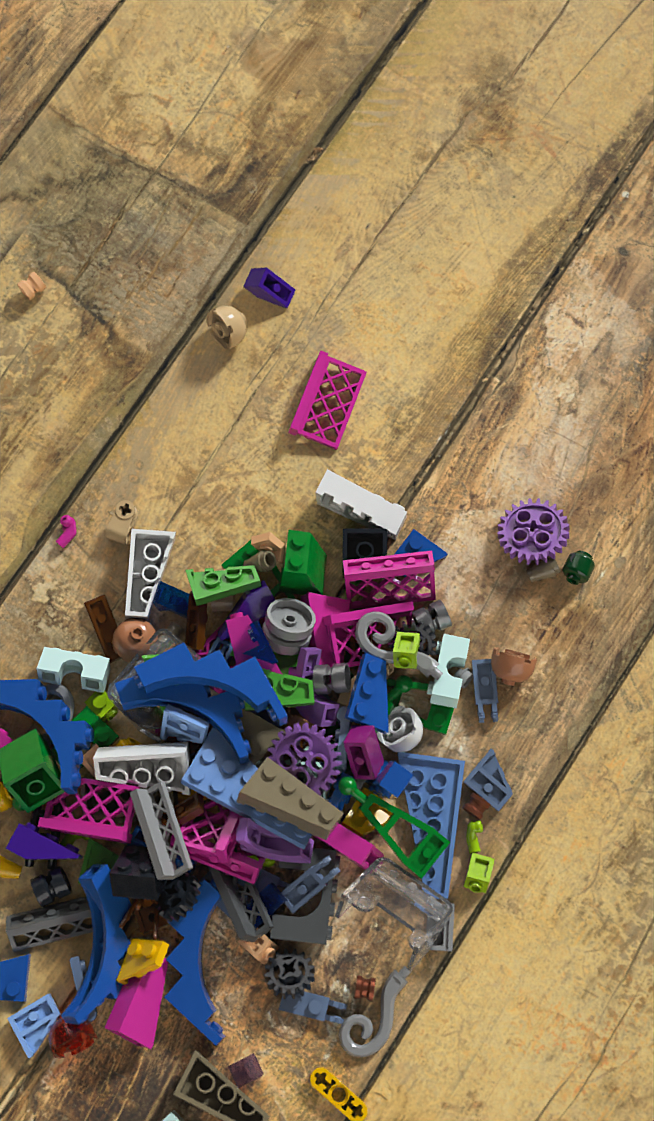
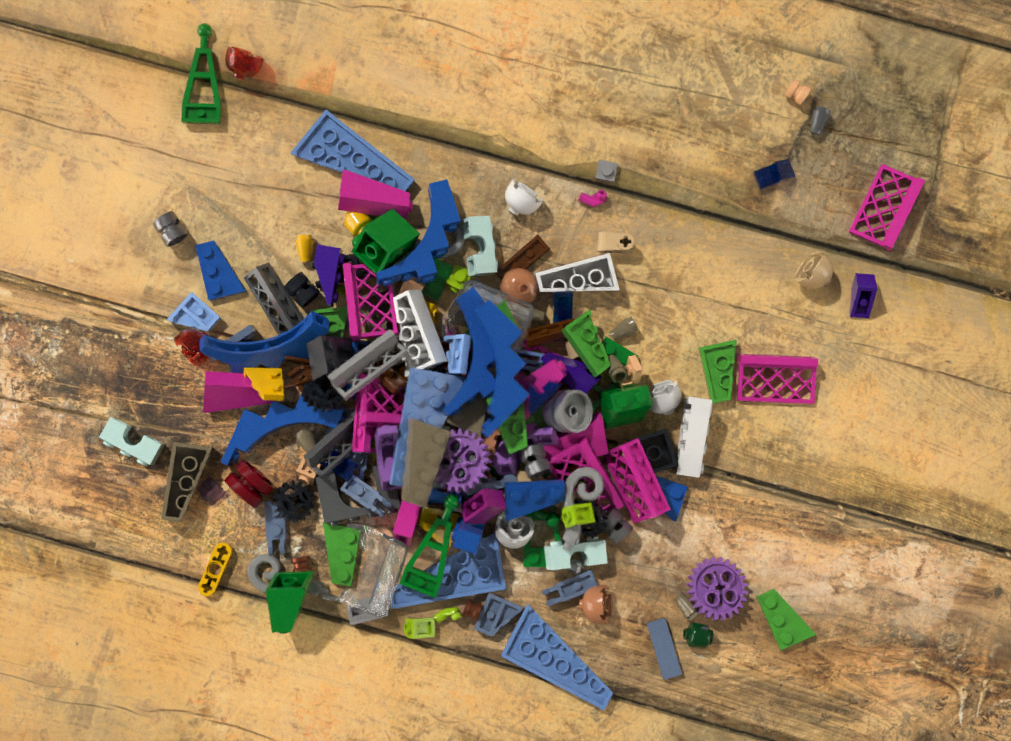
camera: 65 degrees right, 10 degrees up
(39, 606) = (521, 198): none -> white cylinder
(42, 508) = (606, 171): none -> light grey plate
(68, 272) = (819, 119): none -> dark grey cone
(109, 337) = (774, 174): none -> clear blue slope
(201, 226) = (901, 215): none -> dark pink fence
(220, 542) = (624, 329): none -> dark tan cone
(223, 936) = (306, 439): none -> dark tan cone
(251, 1017) = (250, 484): none -> dark red wheel
(295, 457) = (718, 369): none -> bright green wing
(309, 518) = (665, 397): none -> white cylinder
(365, 936) = (342, 552): none -> bright green wing
(398, 1015) = (286, 598): none -> green slope
(552, 739) = (544, 653): none -> medium blue wing
(582, 609) = (664, 648): none -> sand blue tile
(590, 474) = (783, 621): none -> bright green wing

